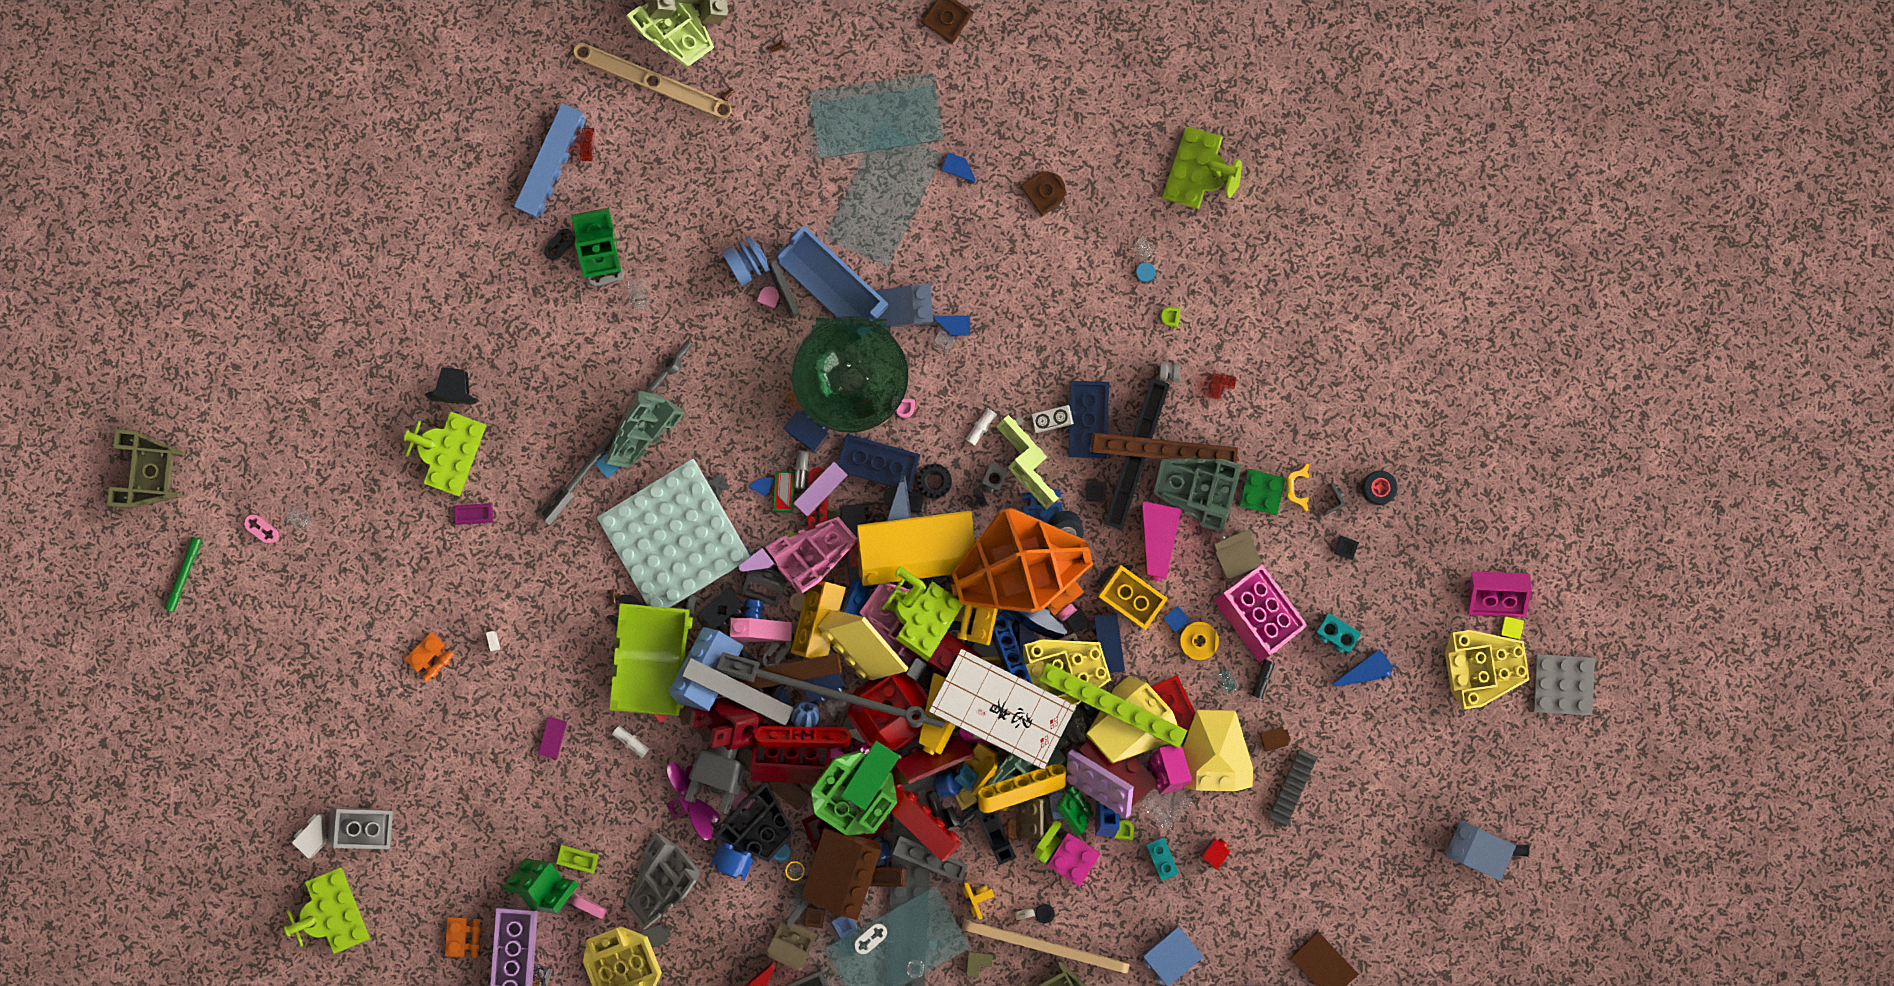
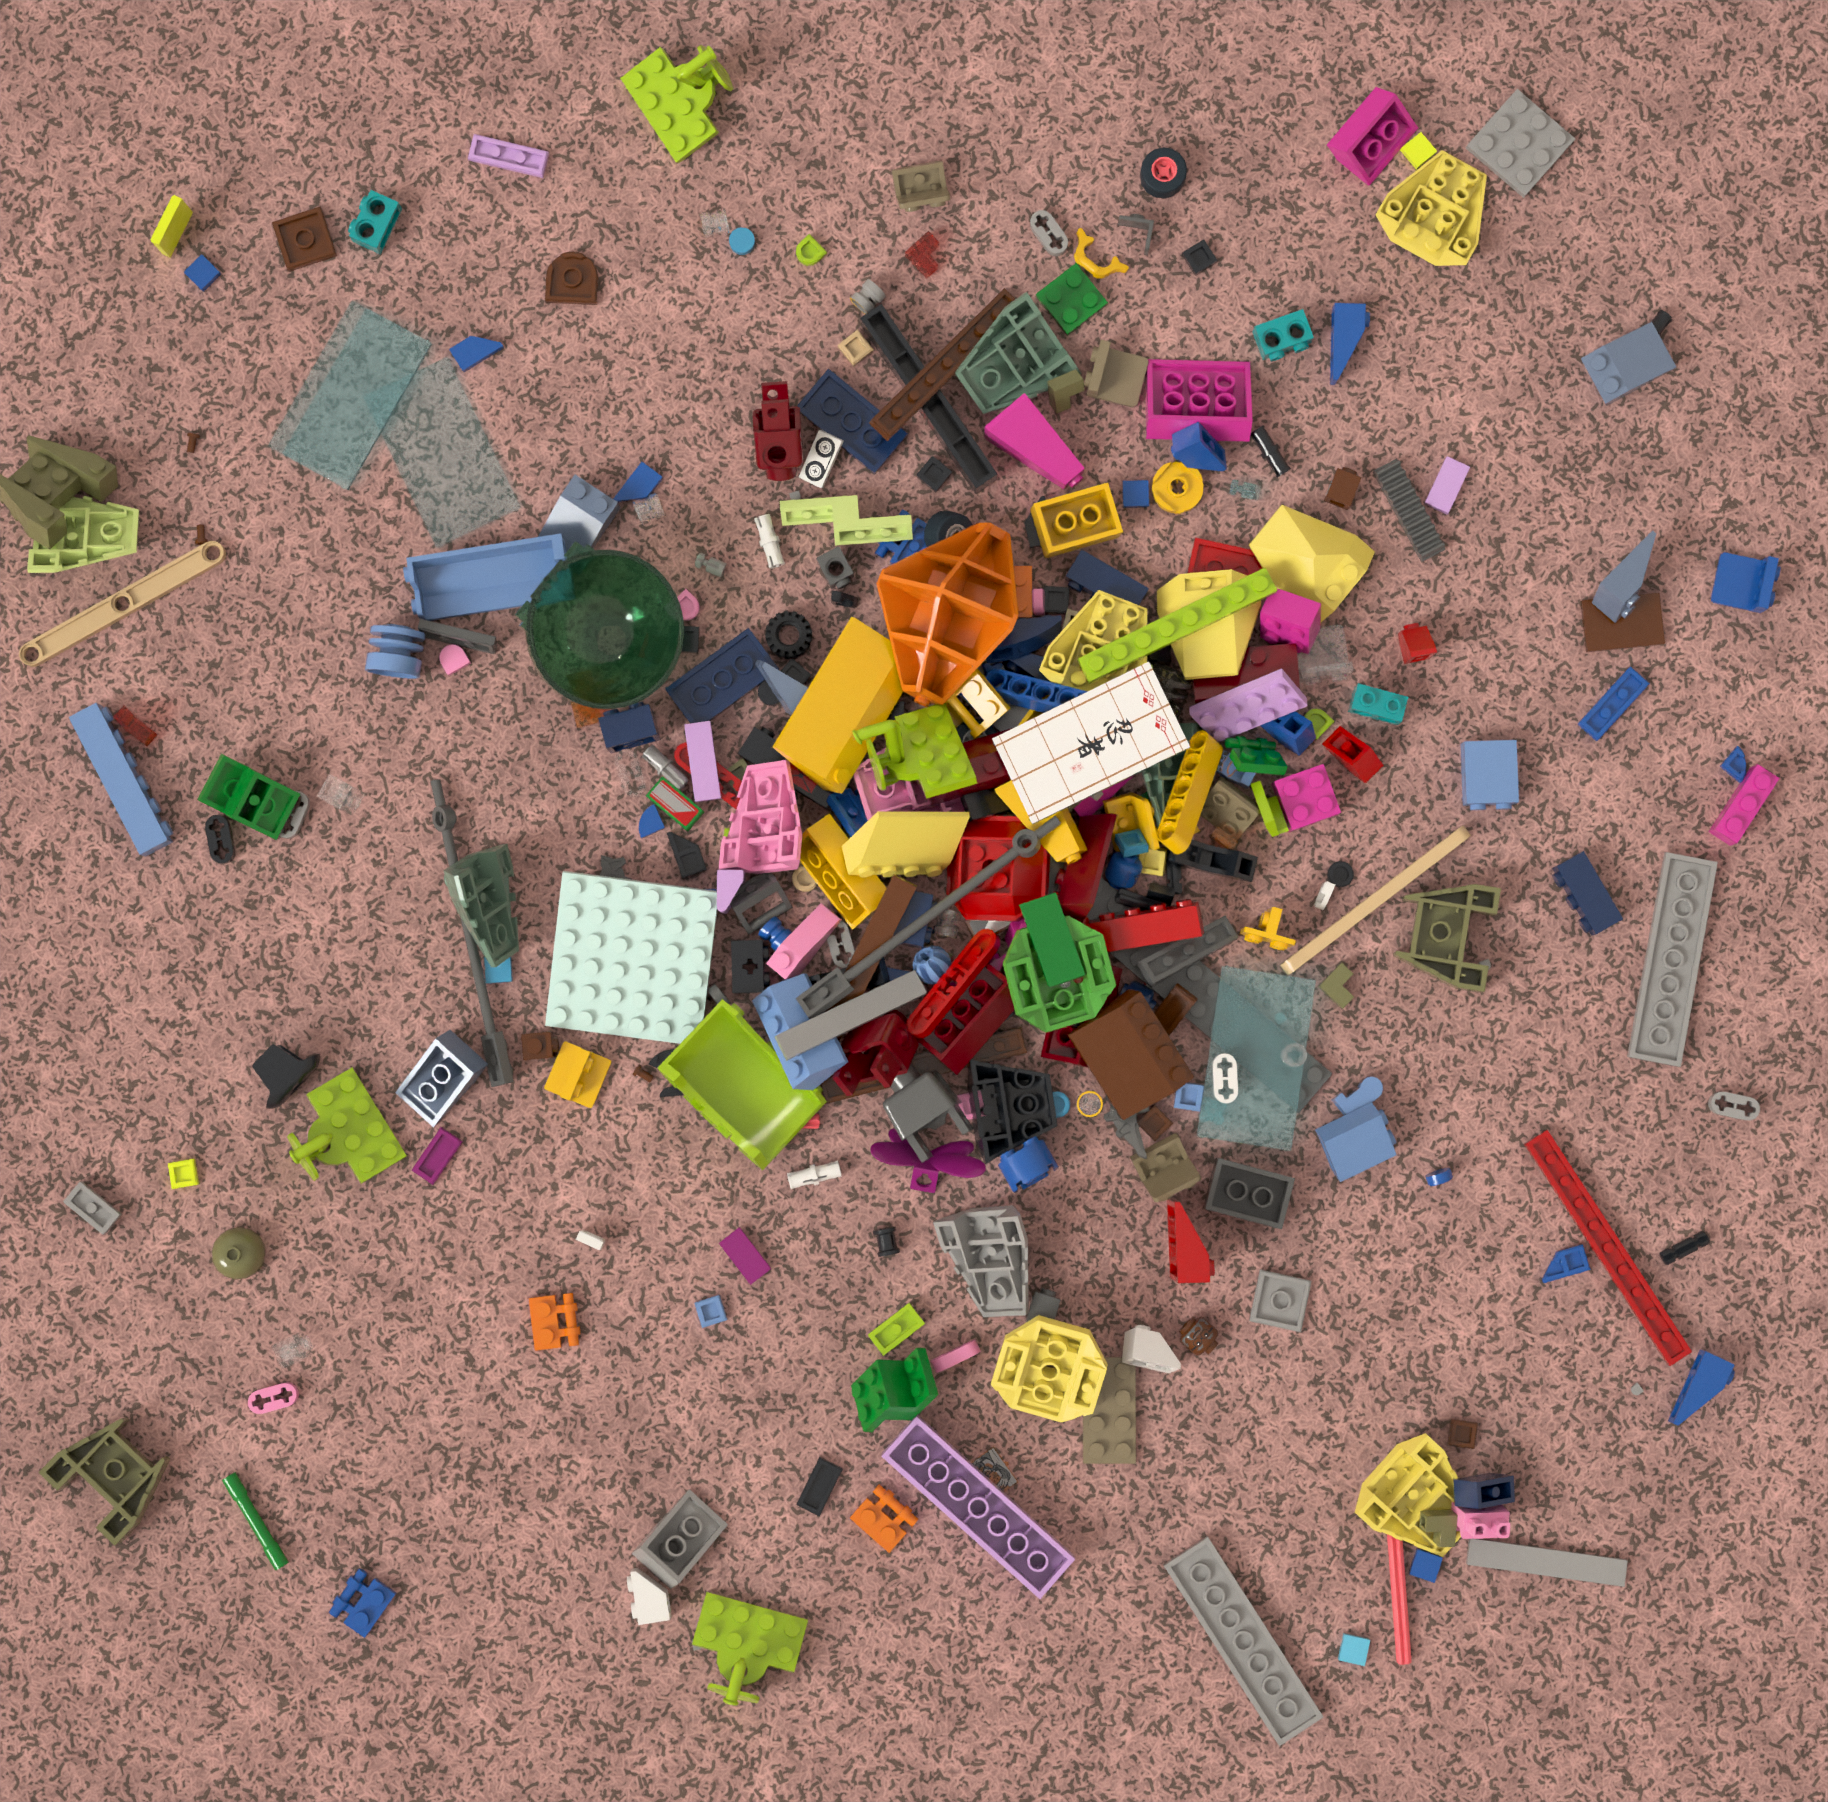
camera: 50 degrees left, 0 degrees up
(186, 678) = (368, 1608): none -> blue plate
(290, 339) = (92, 1208): none -> light grey plate
(329, 443) = (238, 1253): none -> olive cylinder
(350, 375) = (183, 1173): none -> neon yellow tile
(452, 885) = (819, 1486): none -> black tile
(505, 743) = (710, 1311): none -> medium blue tile
(520, 481) = (441, 1077): none -> sand blue slope
(582, 523) = (539, 1045): none -> reddish brown bracket
(582, 558) = (577, 1074): none -> yellow bracket
(624, 814) = (886, 1241): none -> black bush
(760, 522) = (687, 855): none -> black tile
(887, 426) = (691, 639): none -> black tile
(941, 406) = (712, 565): none -> light grey piece
(990, 55) = (382, 223): none -> teal brick
(1046, 383) = (777, 434): none -> dark red piece
(1089, 97) = (508, 156): none -> lavender tile
(1121, 866) = (1353, 754): none -> red slope
(1134, 387) = (855, 348): none -> tan tile
(1204, 528) = (1062, 388): none -> olive piece
(1230, 636) = (1198, 449): none -> blue slope
(1258, 352) = (920, 186): none -> dark tan bracket
(1295, 450) = (1054, 230): none -> light grey beam
(1325, 799) = (1447, 485): none -> lavender tile
(1340, 949) = (1621, 587): none -> sand blue slope

